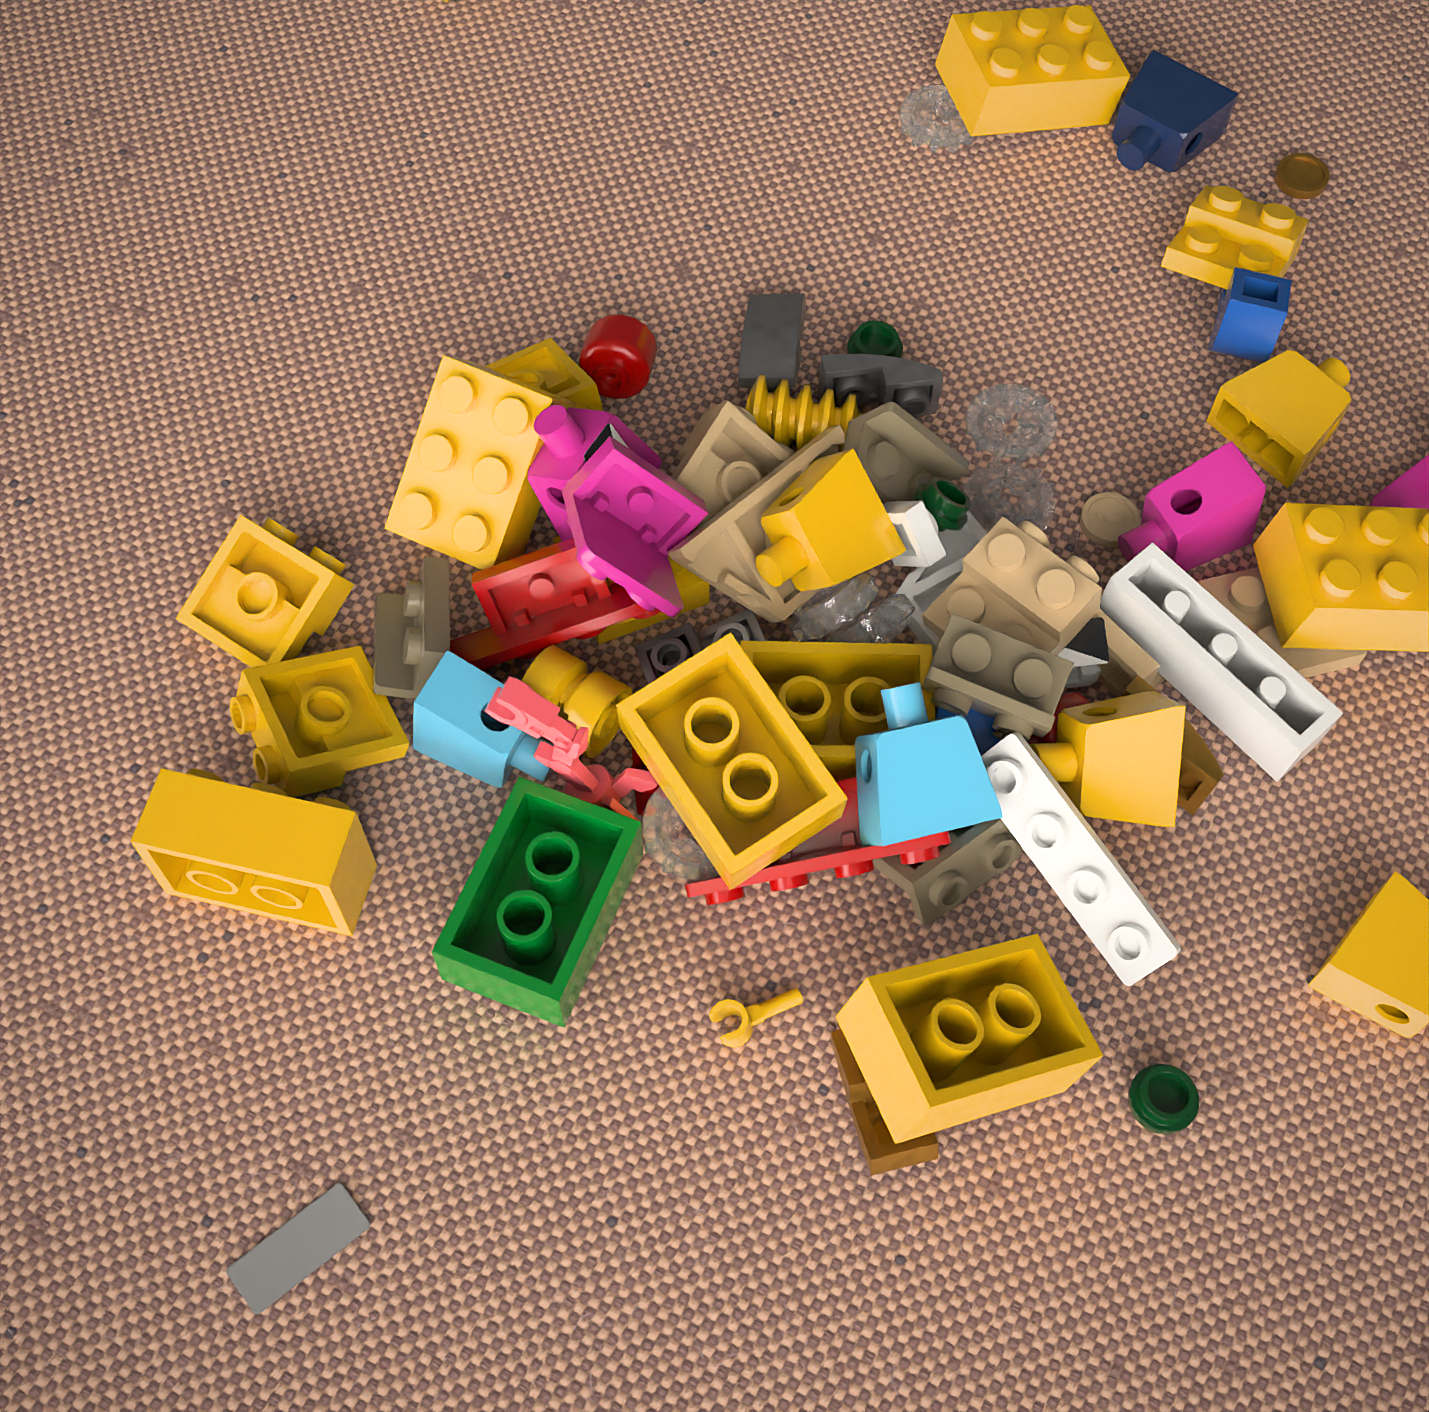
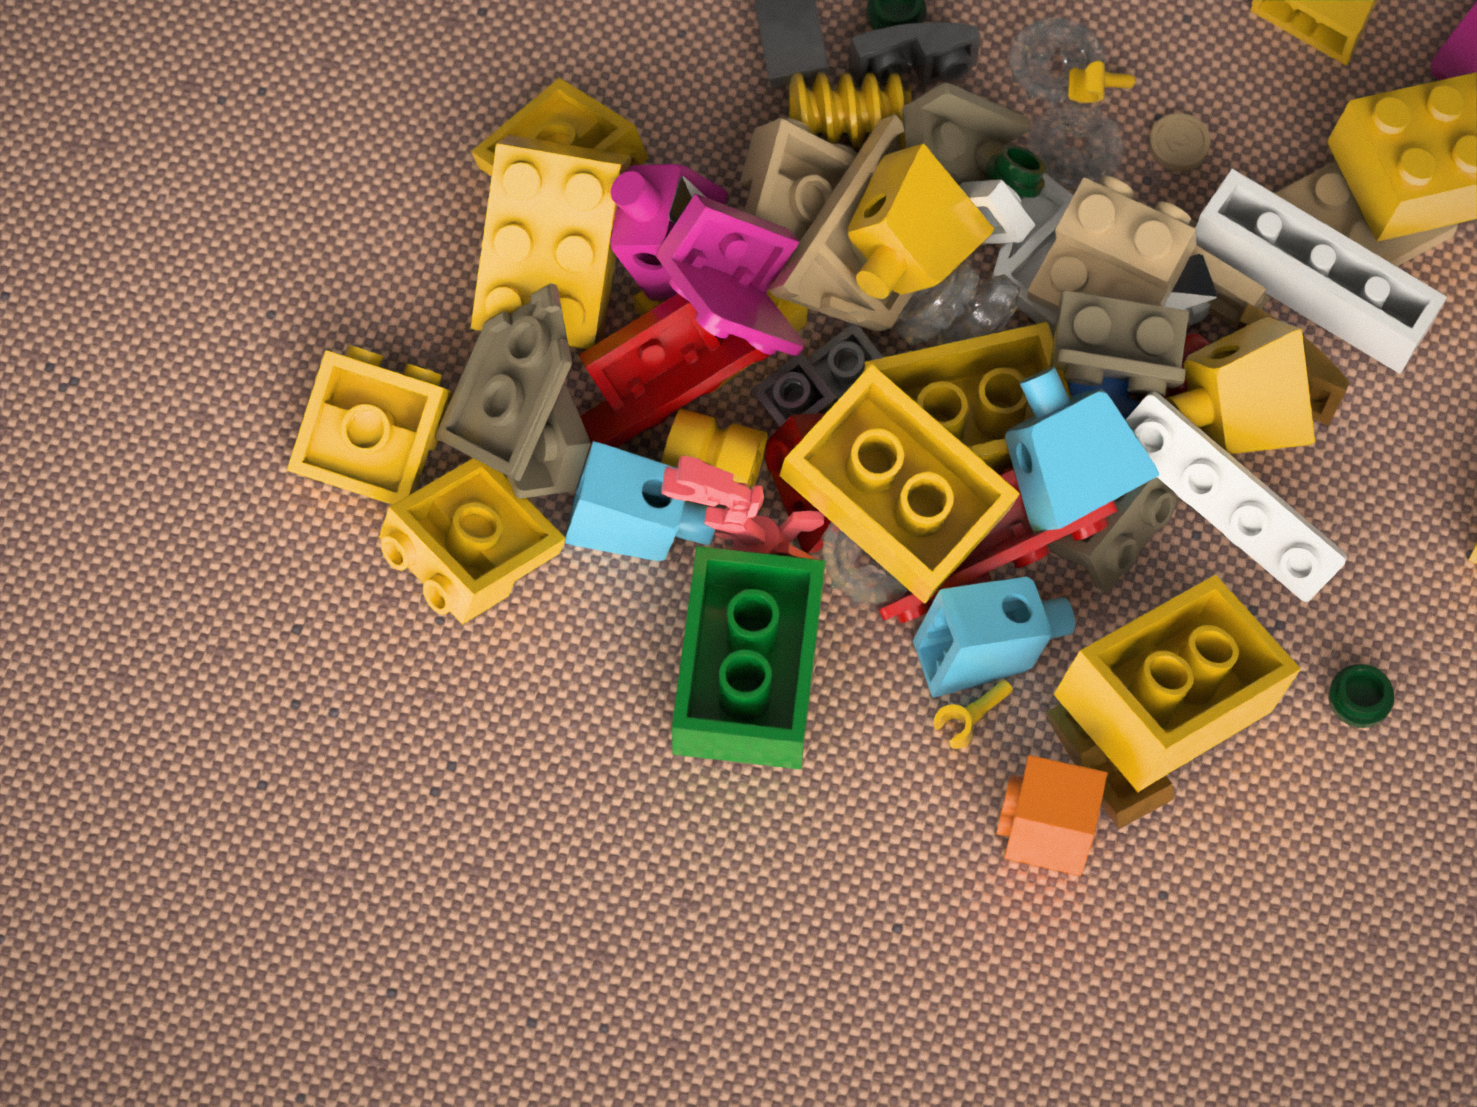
camera: 15 degrees left, 5 degrees up
(256, 850) = (468, 676): yellow brick -> none
(297, 1248) = (623, 1023): light grey sticker -> none
(396, 585) = (510, 385): none -> dark tan tile
(621, 352) = (638, 80): red head -> none
(790, 935) = (987, 633): none -> medium azure torso
(797, 1142) = (1051, 814): none -> orange brick
(1036, 445) = (1090, 84): none -> yellow hand
(1200, 511) = (1266, 122): dark pink torso -> none

